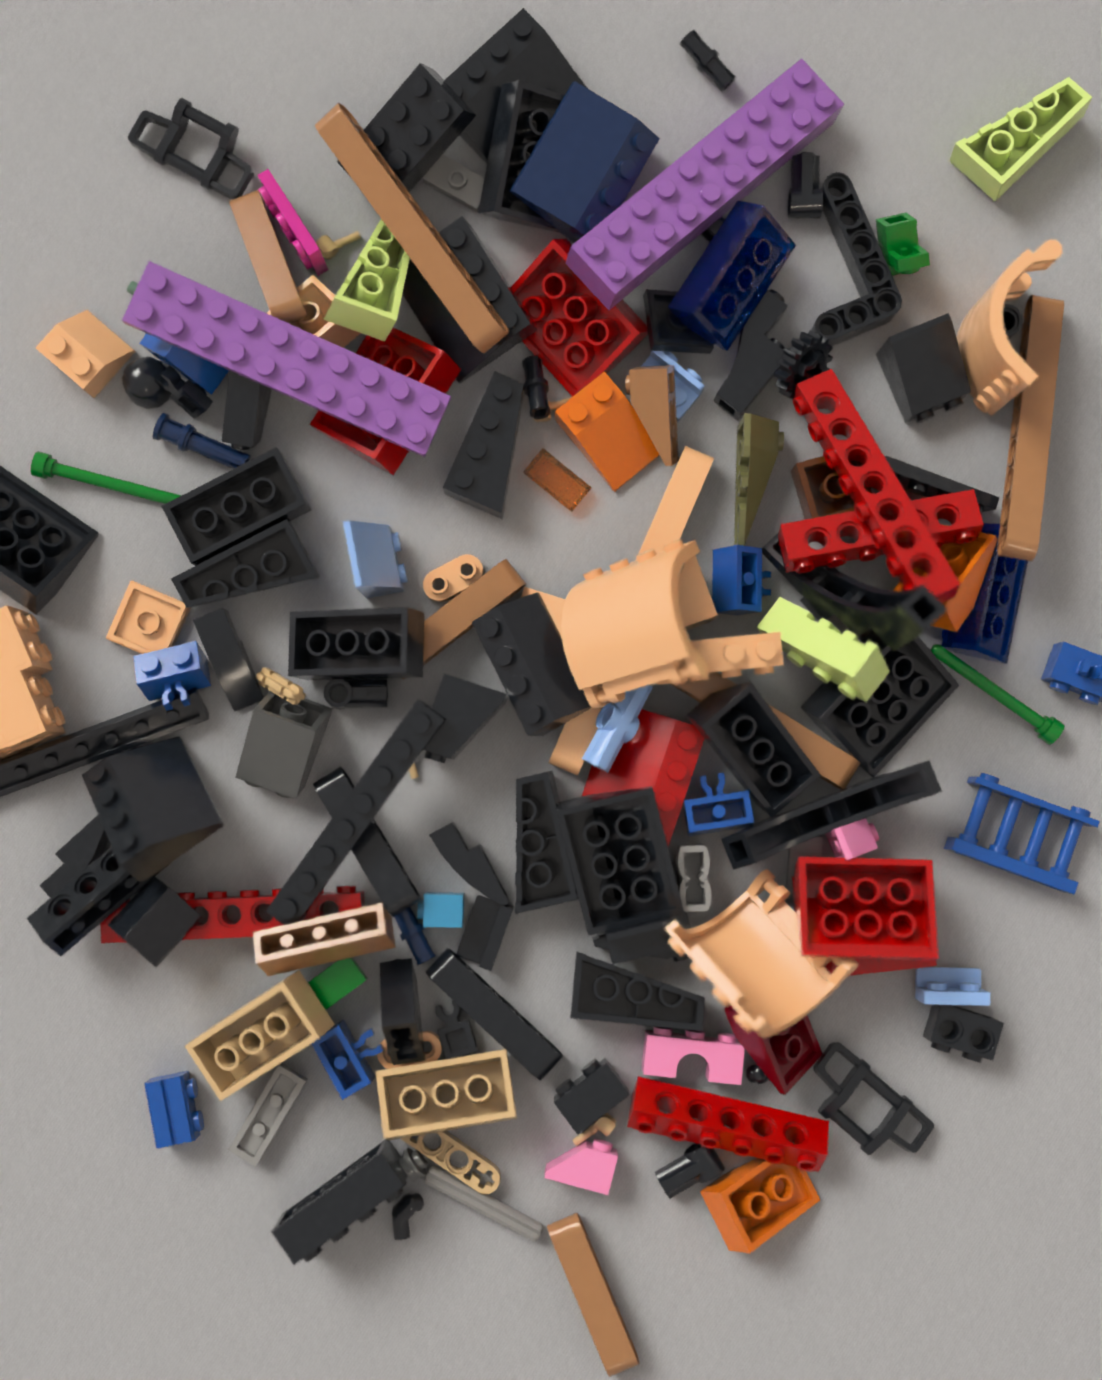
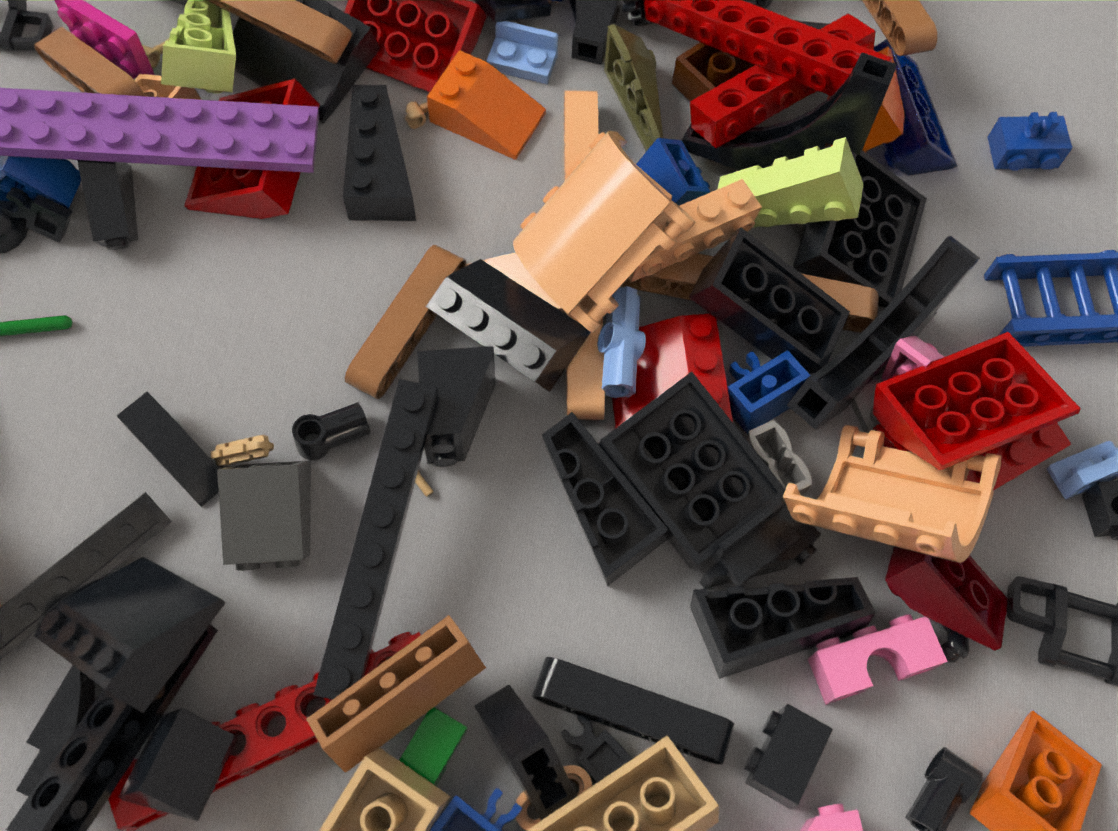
camera: 25 degrees left, 20 degrees down
(147, 620) = (68, 451): light nougat tile -> none
(172, 672) = (110, 483): blue brick -> none
(188, 438) = (57, 259): dark blue pin -> none
(236, 506) = (131, 297): black brick -> none
(252, 566) = (163, 348): black wedge -> none
(356, 644) = (309, 368): black brick -> none
(372, 849) = (414, 580): black beam -> none
(374, 558) = (297, 286): light blue slope -> none
(414, 936) = (499, 659): dark blue pin -> none
(442, 910) = (521, 616): dark azure brick -> none
(454, 580) = (387, 284): light nougat plate -> none
(469, 864) = (529, 553): black slope -> none
(484, 931) = (580, 623): black panel -> none
(536, 387) = (400, 92): black pin -> none
(557, 480) = (455, 165): clear orange tile -> none
(604, 1124) = (819, 786): tan hand -> none
(655, 404) = (517, 61): medium nougat slope -> none
(741, 1116) = (957, 715): red brick -> none
(1047, 728) = (1029, 200): green piece -> none

